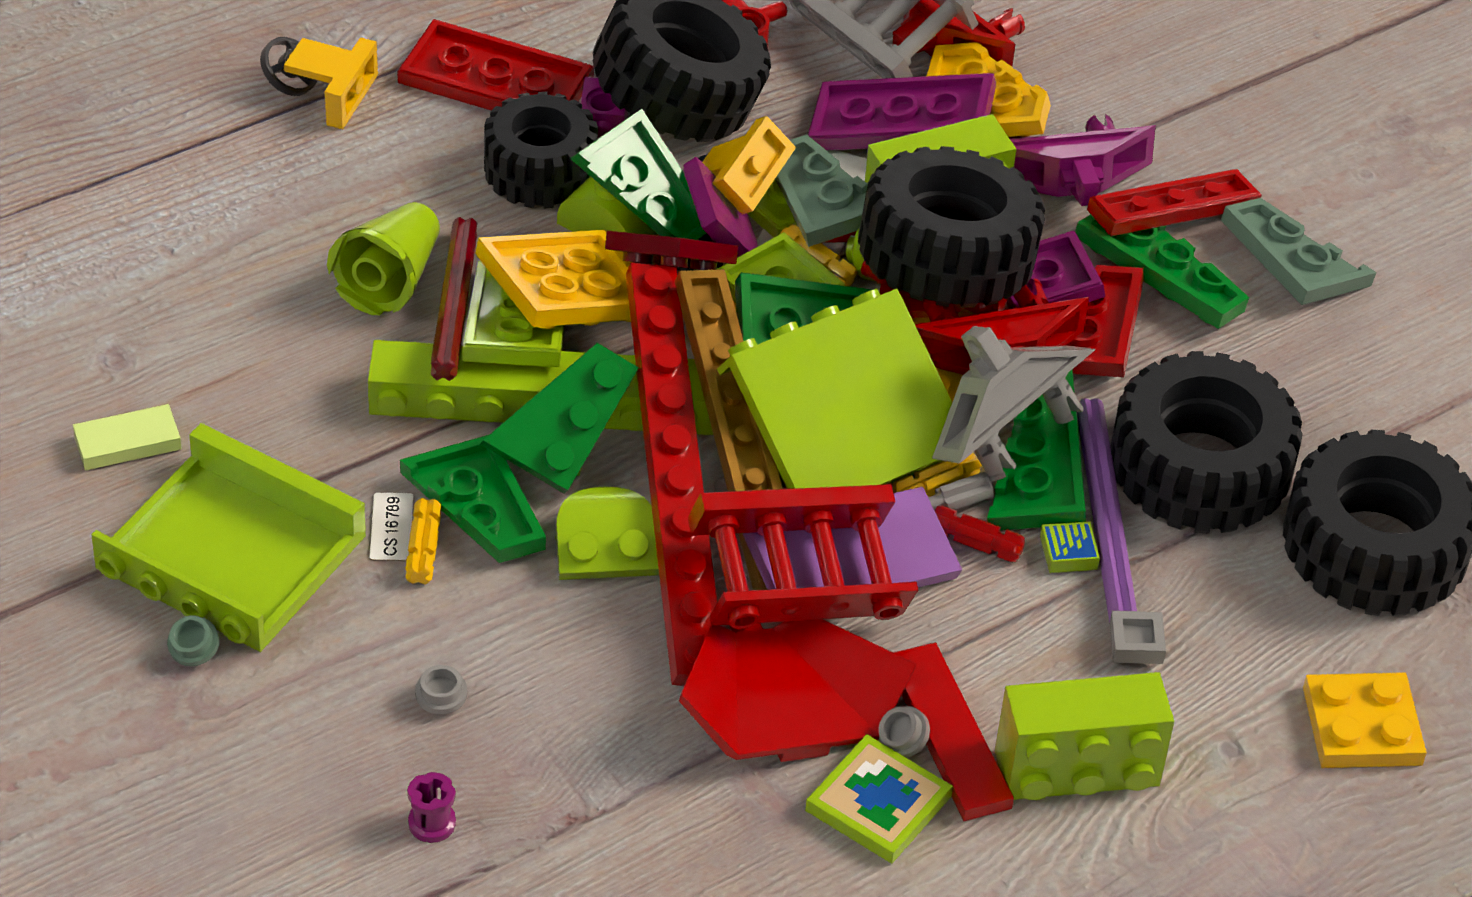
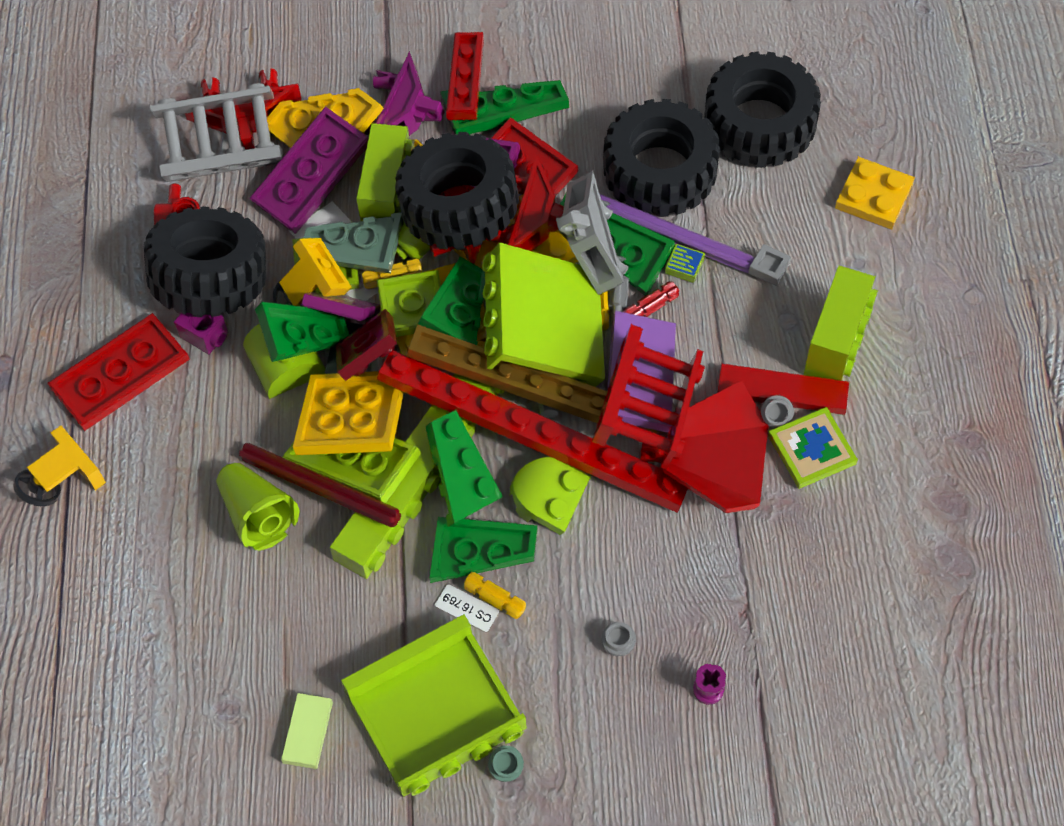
camera: 55 degrees left, 15 degrees up
(532, 145) = (208, 356): black tyre -> none
(1296, 261) = (537, 43): sand green wing -> none

